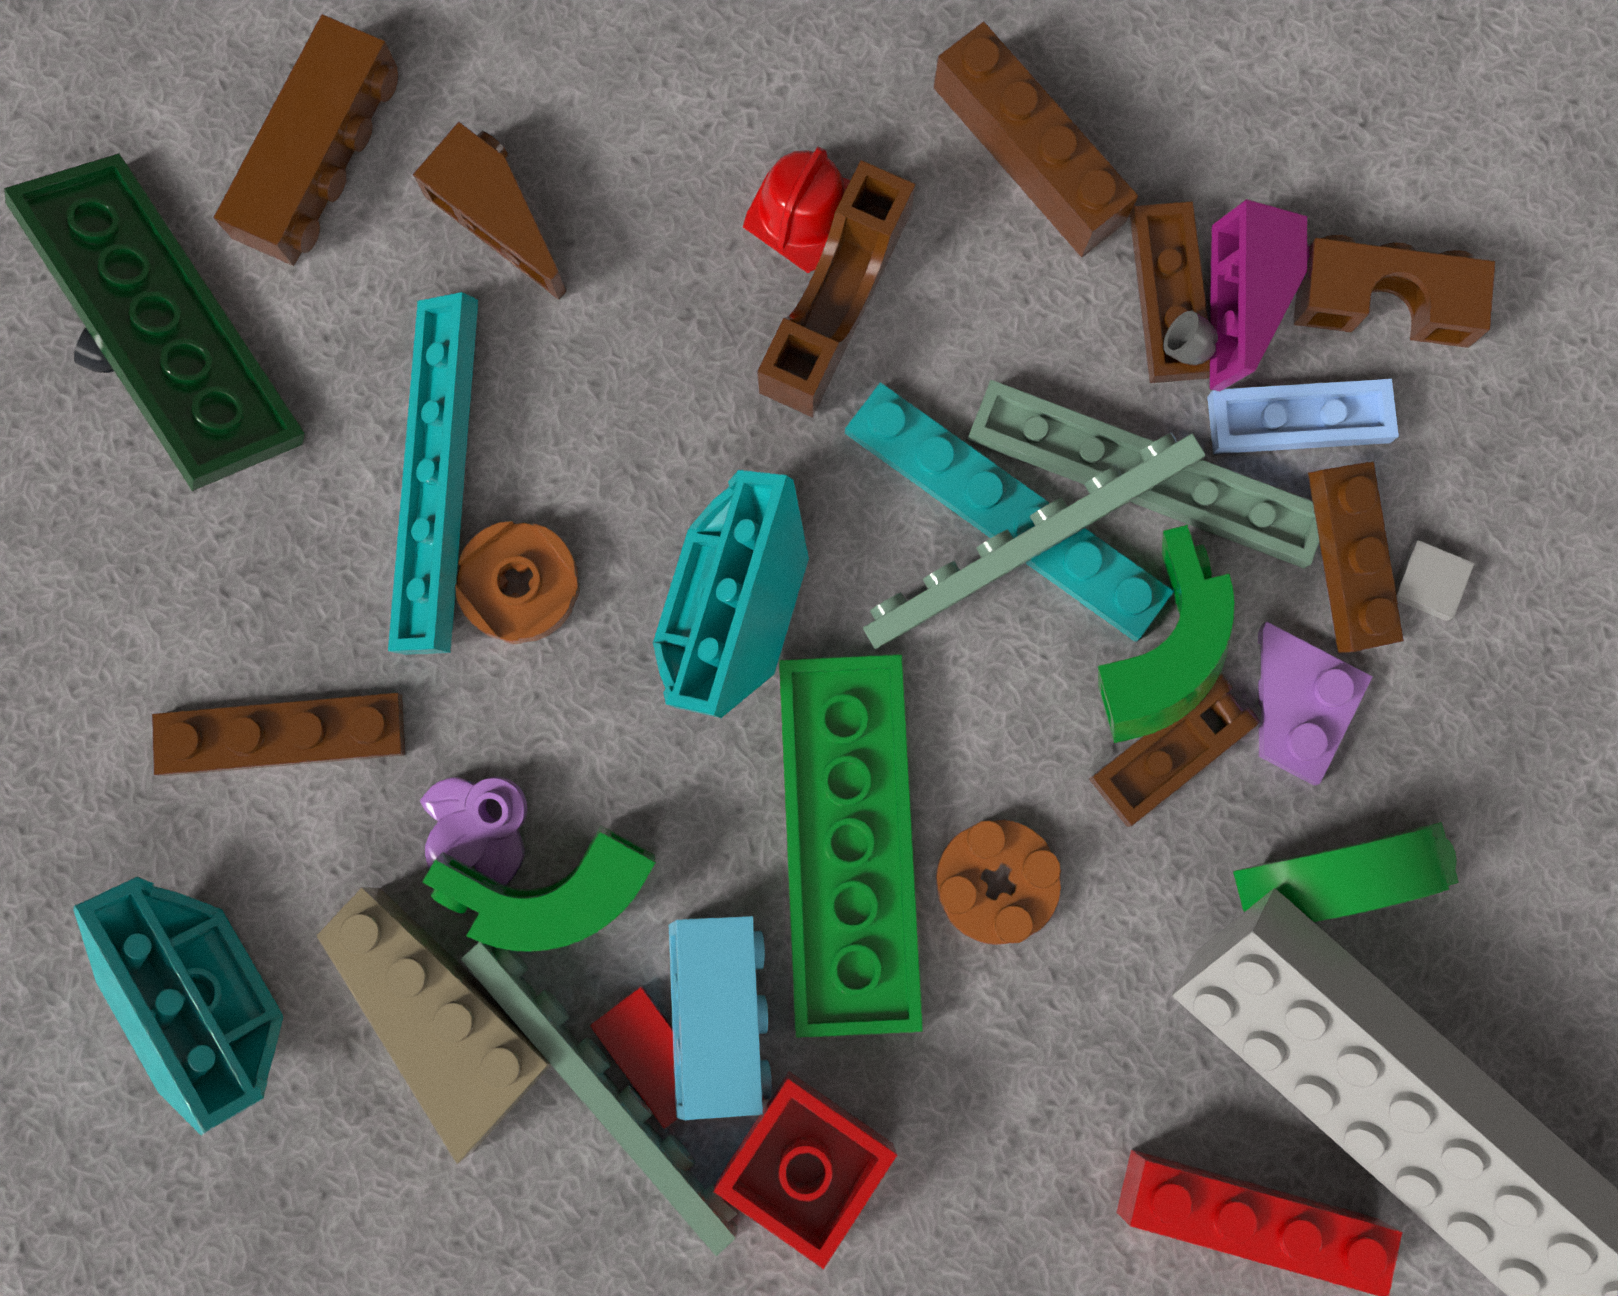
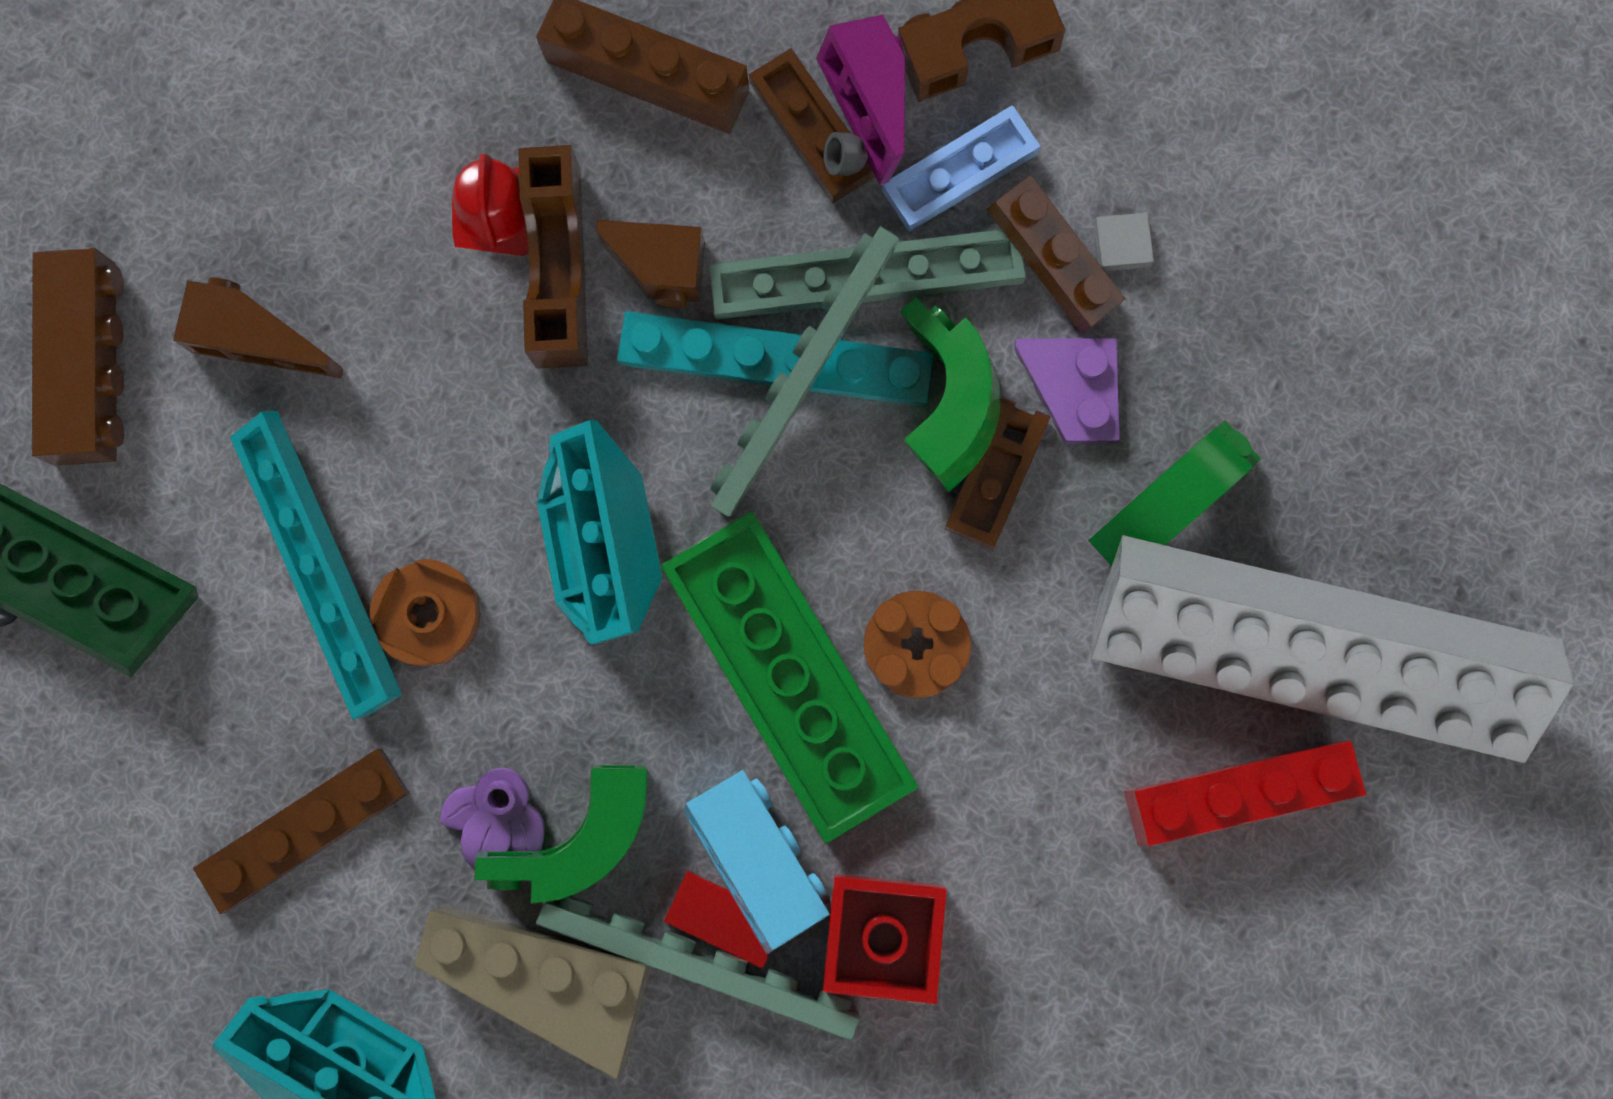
camera: 20 degrees left, 0 degrees up
(941, 346) = (658, 258): none -> reddish brown slope

